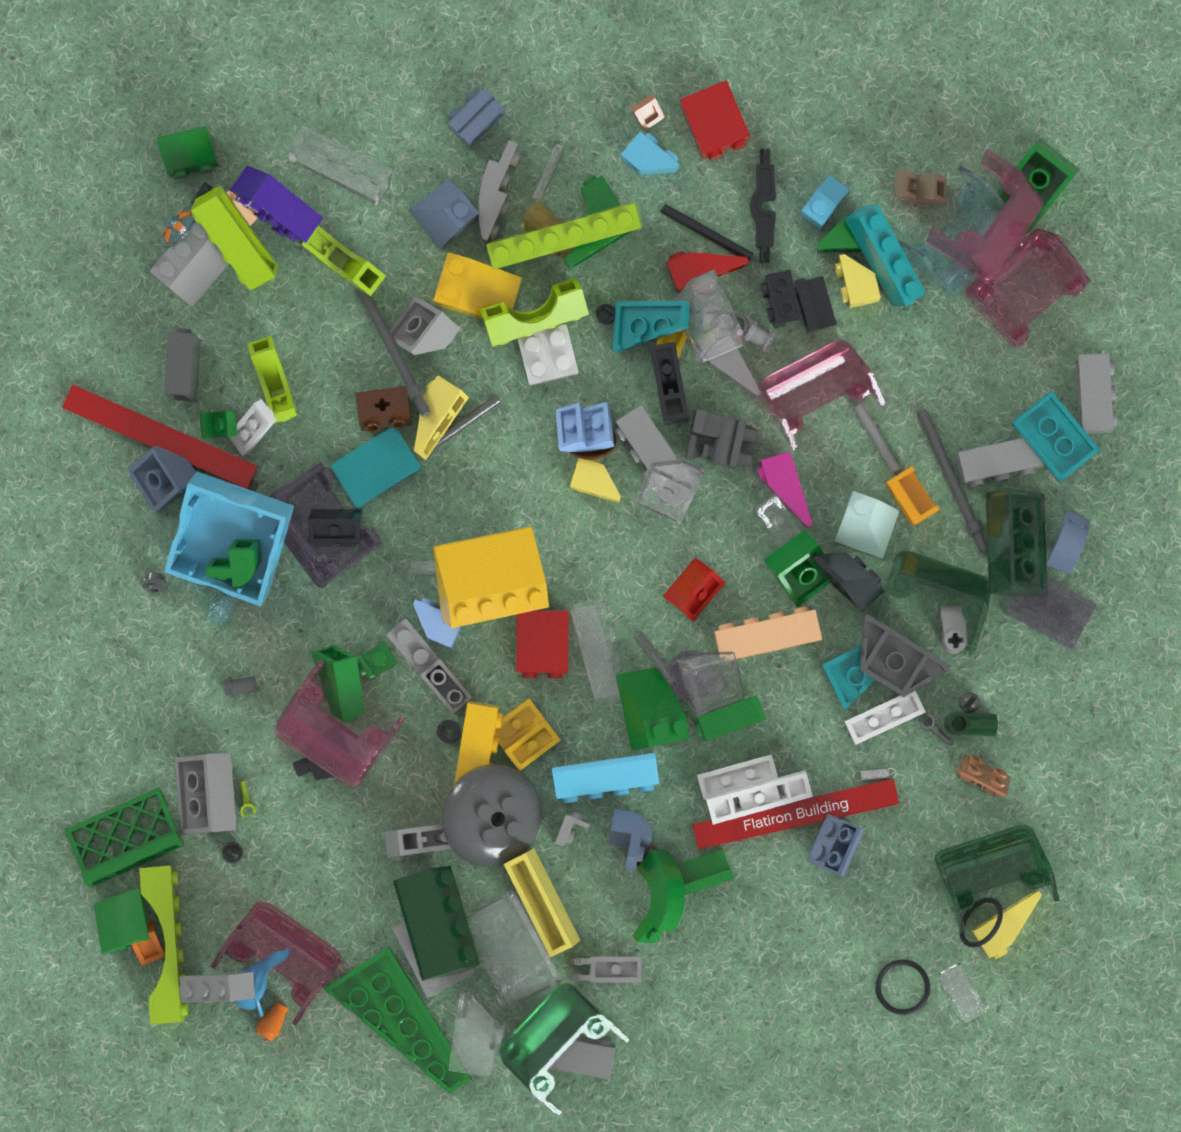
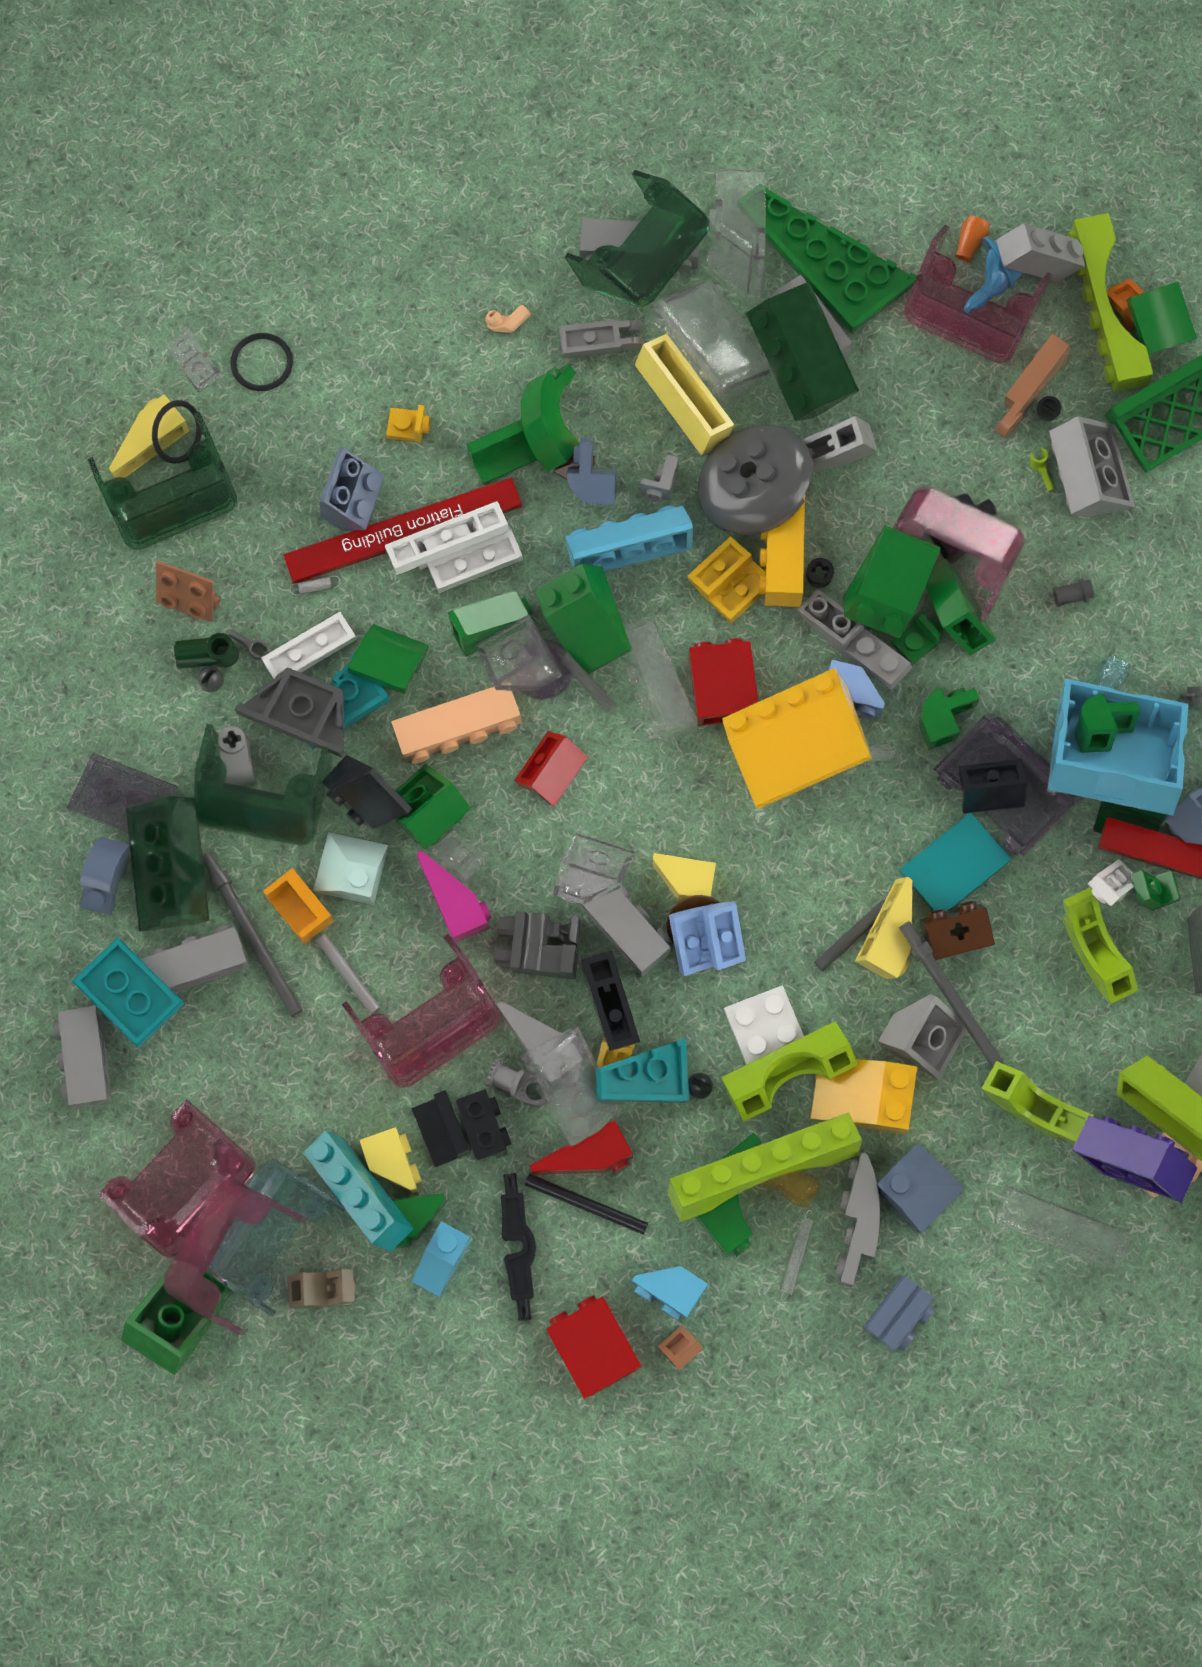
camera: 170 degrees right, 10 degrees down
(243, 874) = (1032, 382): none -> nougat piece
(371, 594) = (937, 717): none -> green brick
(394, 701) = (890, 582): none -> green slope
(686, 994) = (507, 324): none -> light nougat arm
(781, 910) = (408, 424): none -> yellow bracket
(818, 699) = (388, 658): none -> green slope

